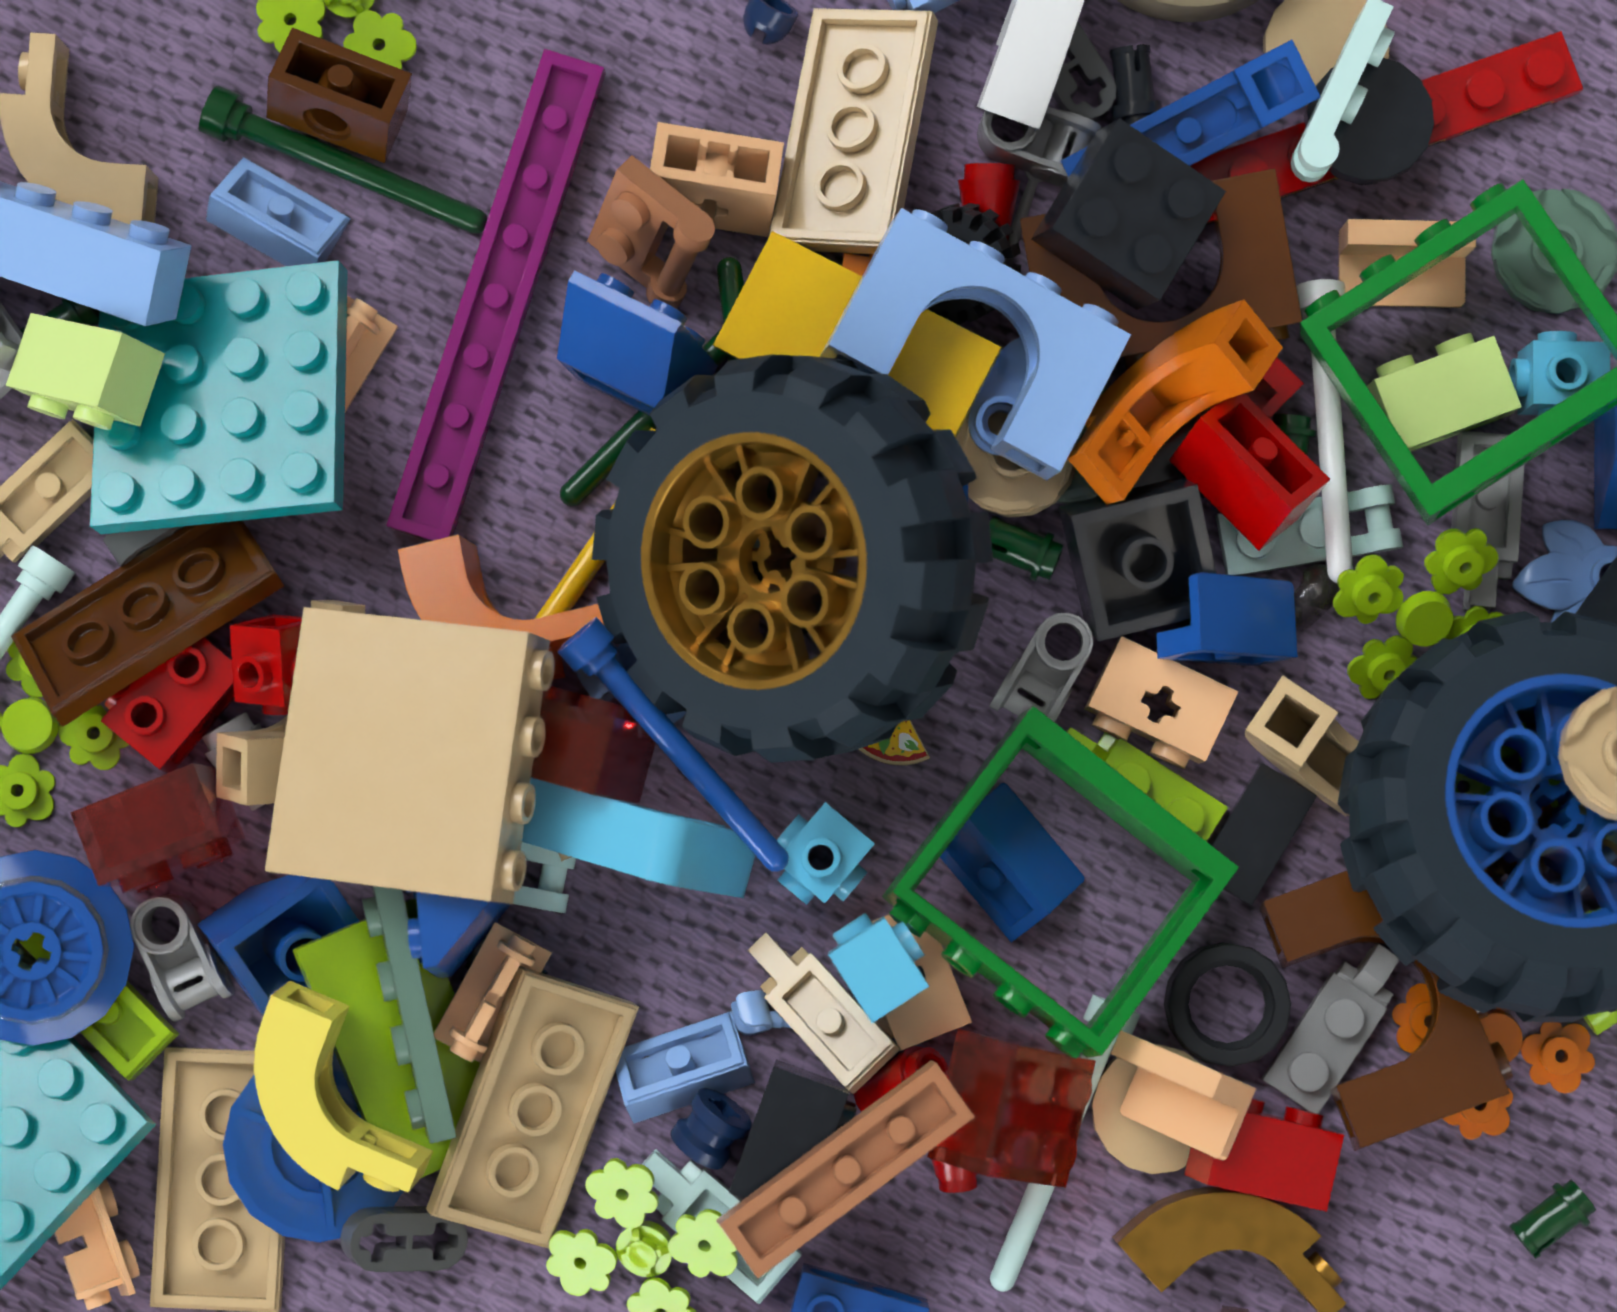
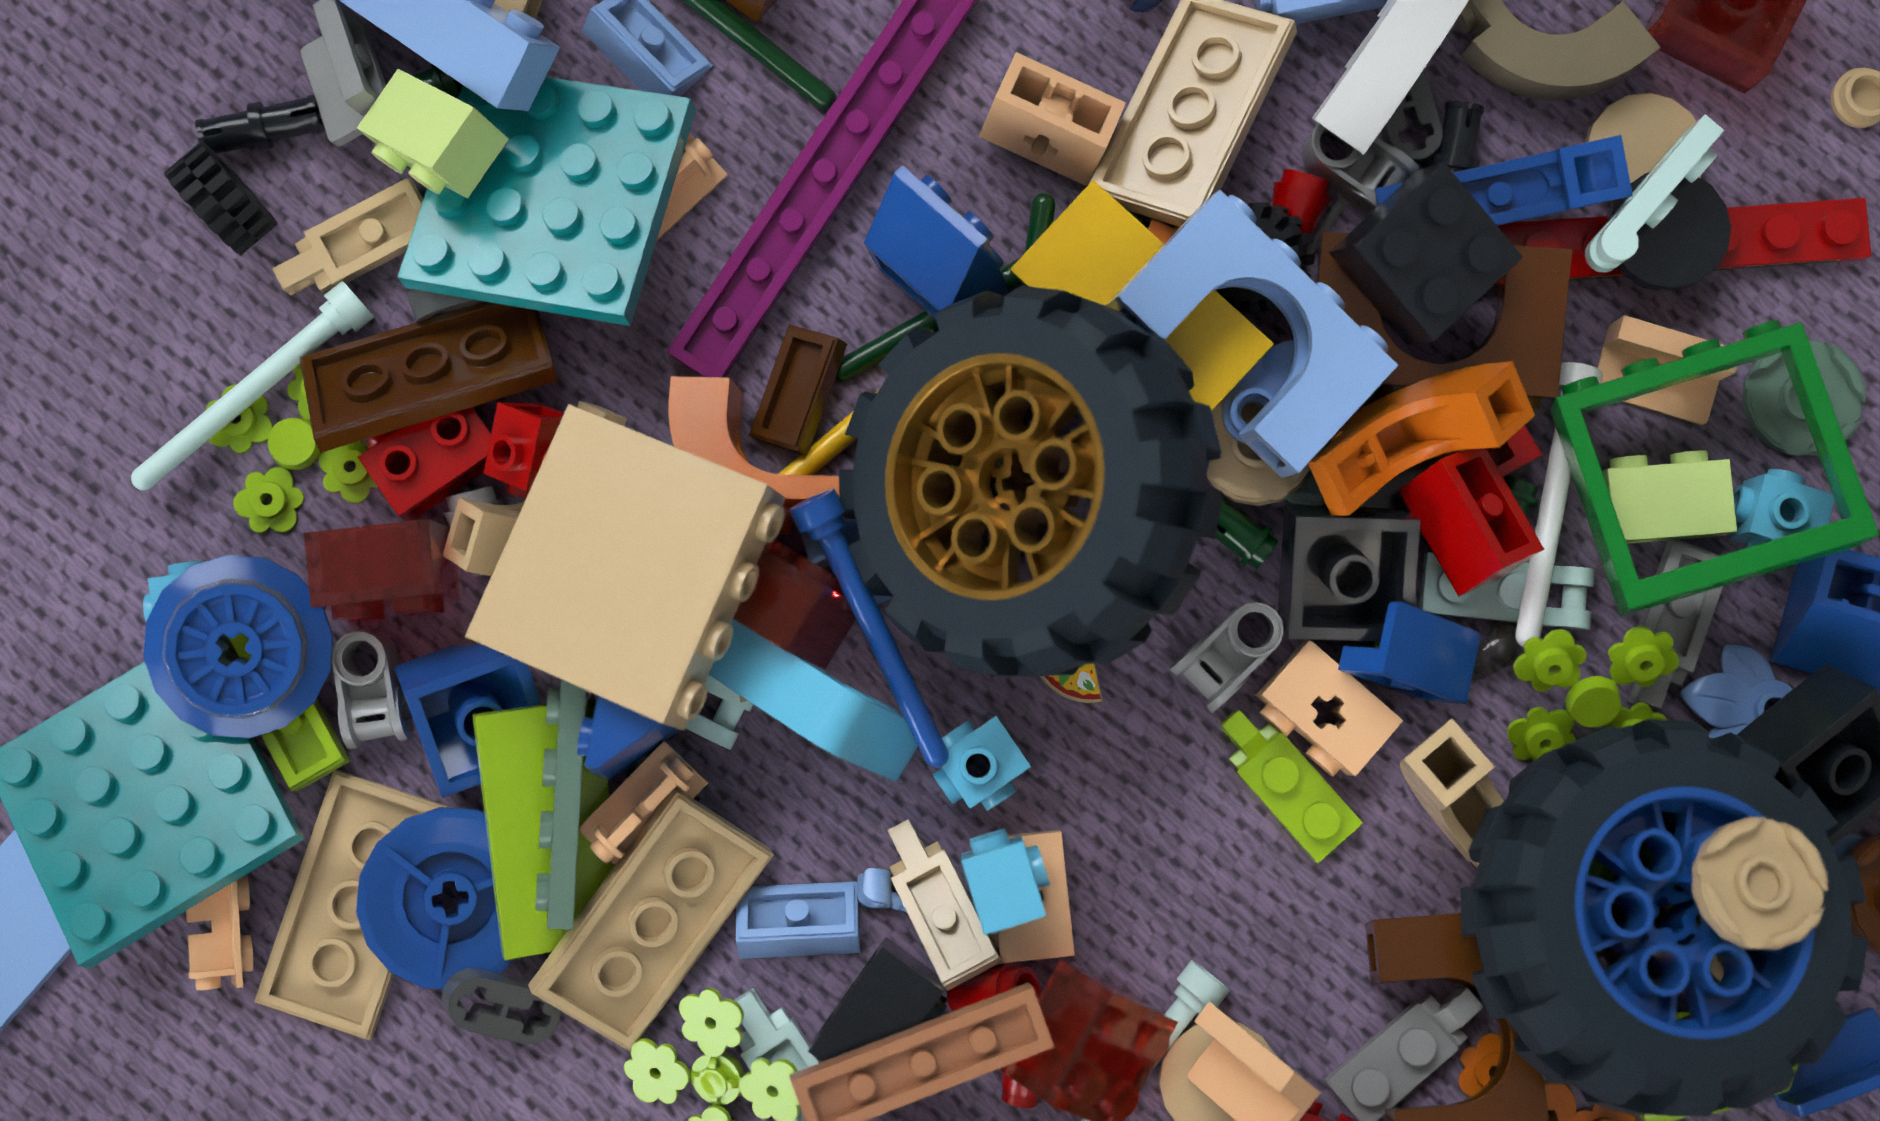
camera: 15 degrees right, 0 degrees up
(304, 1103) = (445, 864): light yellow arch -> none
(531, 527) = (798, 389): none -> reddish brown tile
(634, 224) = (970, 137): nougat plate -> none
(711, 1128) = (808, 984): dark blue wheel -> none
(1011, 863) = (1147, 817): blue panel -> none
(1126, 806) = (1276, 802): green window -> none
(1261, 829) = (1381, 854): black tile -> none
(1275, 1013) = (1358, 1015): black tyre -> none

